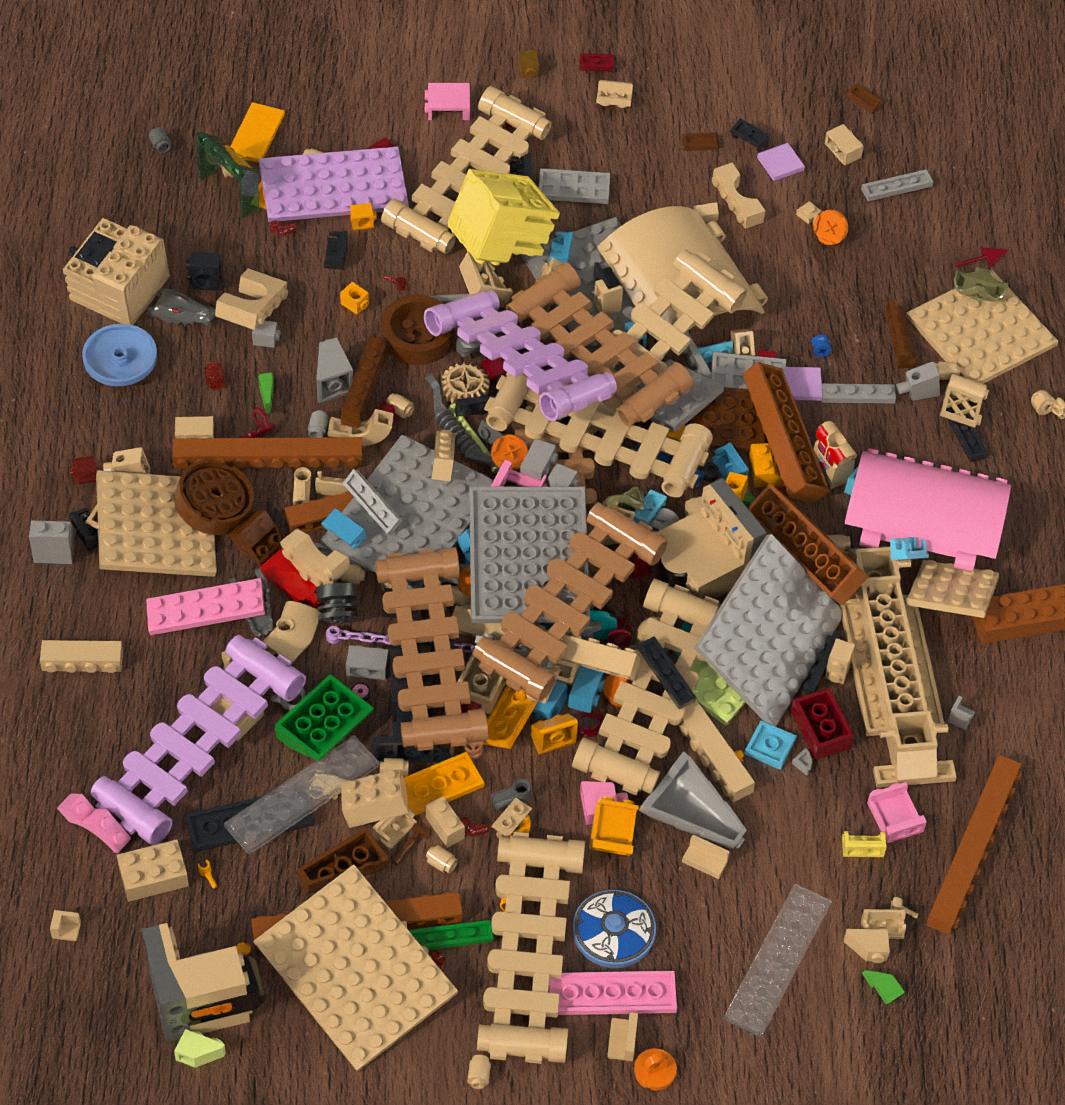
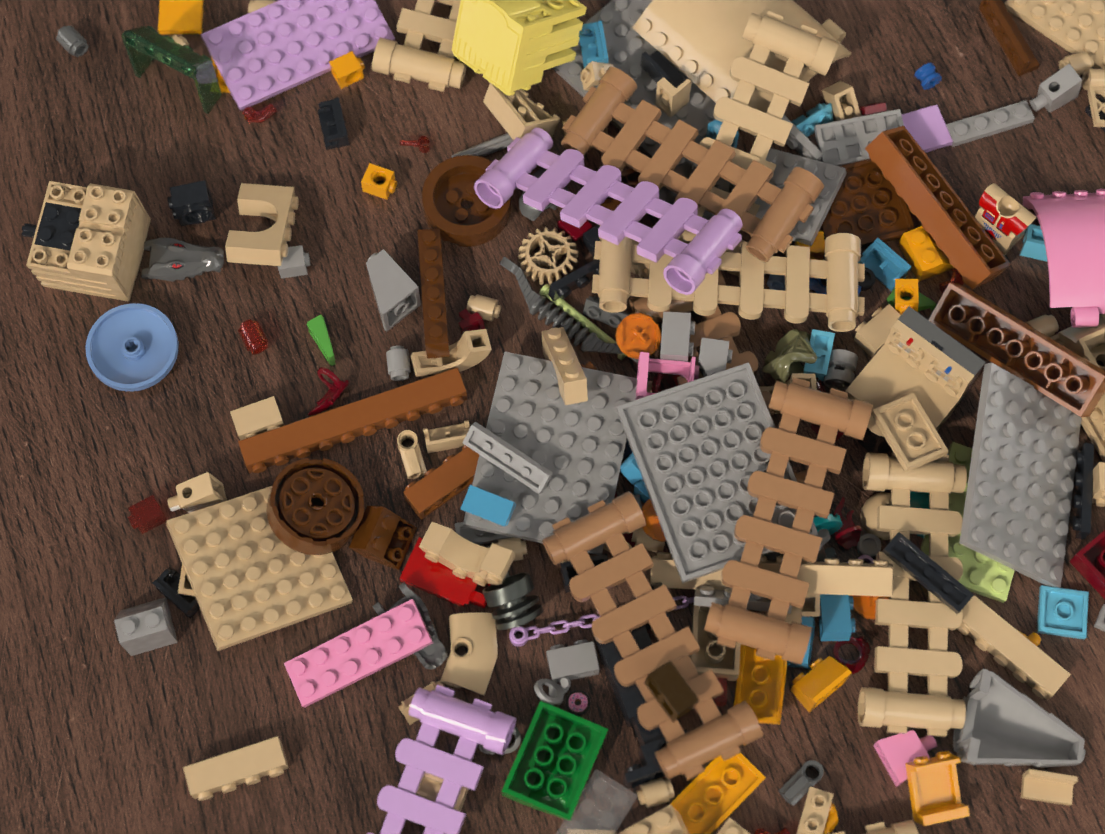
camera: 15 degrees left, 15 degrees up
(346, 678) = (556, 691): none -> light grey piece
(428, 683) = (671, 691): none -> dark brown hinge
(691, 571) = (909, 432): none -> tan plate

